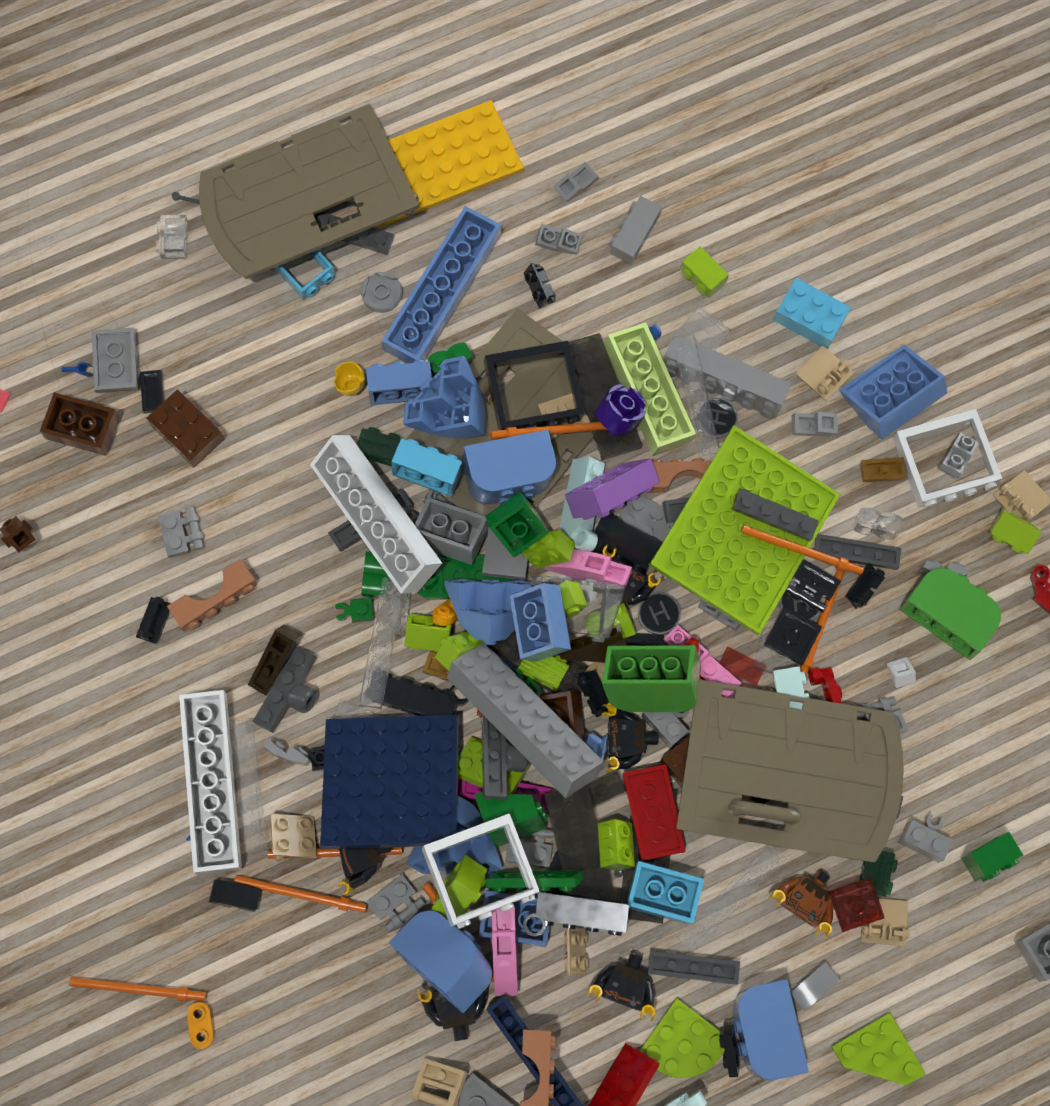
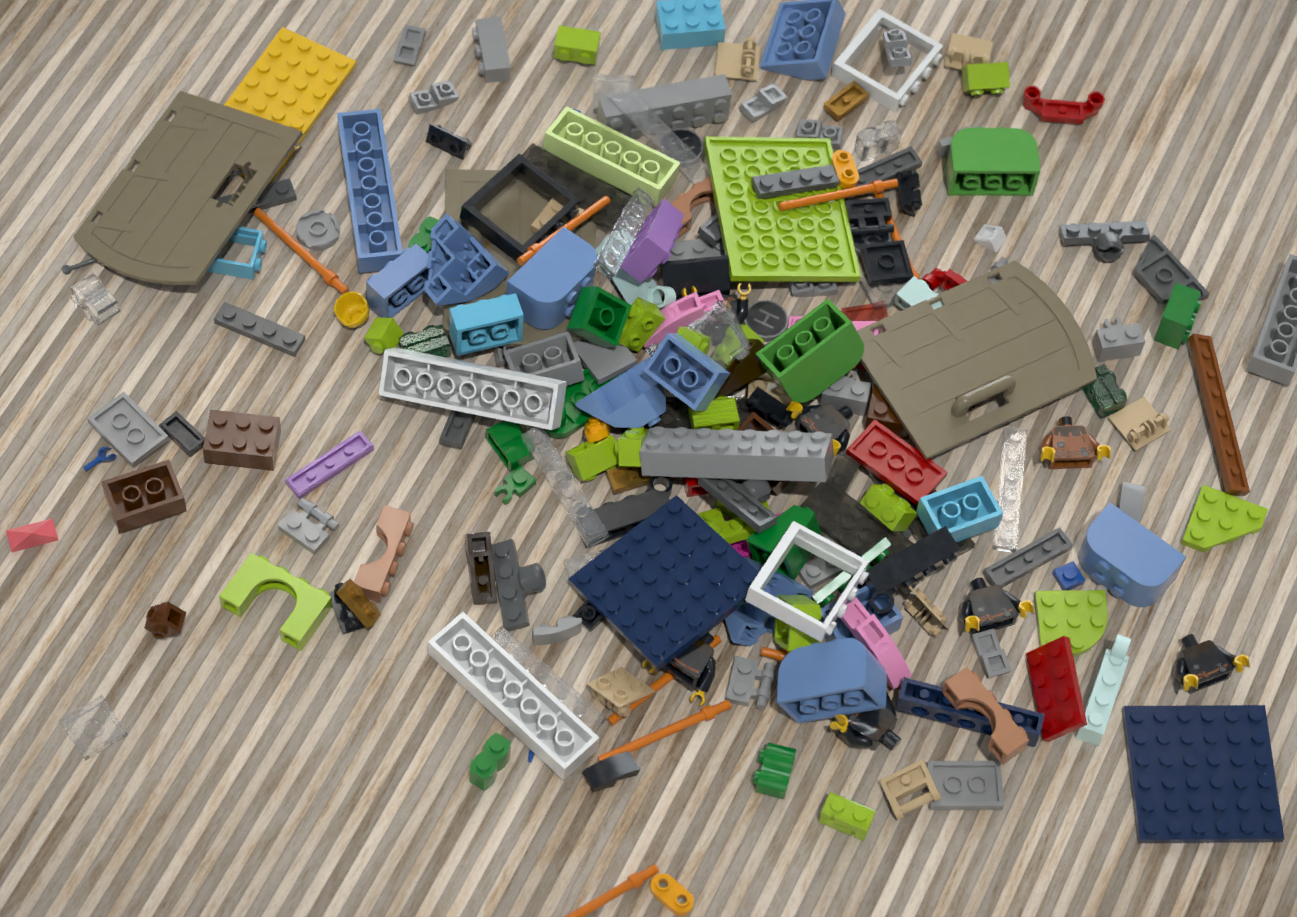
camera: 40 degrees left, 15 degrees down
(128, 597) = (260, 575): none -> lime arch
(148, 823) = (490, 761): none -> green brick
(159, 624) = (358, 603): none -> pearl gold plate
(236, 493) = (329, 464): none -> medium lavender tile
(273, 345) = (259, 329): none -> plate
(353, 989) = (775, 770): none -> green brick
(354, 417) = (383, 334): none -> lime brick
(357, 337) = (329, 277): none -> orange bar
(374, 1068) = (847, 816): none -> lime brick
(596, 465) = (624, 233): none -> clear plate
(598, 1022) = (990, 654): none -> light grey slope
(620, 410) = (606, 179): dark purple brick -> none
(714, 1006) = (1068, 576): none -> blue plate
(731, 1057) = (1118, 602): black plate -> none
(828, 530) = (844, 165): none -> light orange plate
(836, 478) = (815, 129): none -> light grey slope
(856, 904) = (1109, 420): clear red tile -> none
(955, 964) = (1219, 415): none -> dark orange plate
(997, 740) = (1105, 236): none -> dark grey plate
(1018, 811) = (1161, 270): none -> dark grey wing

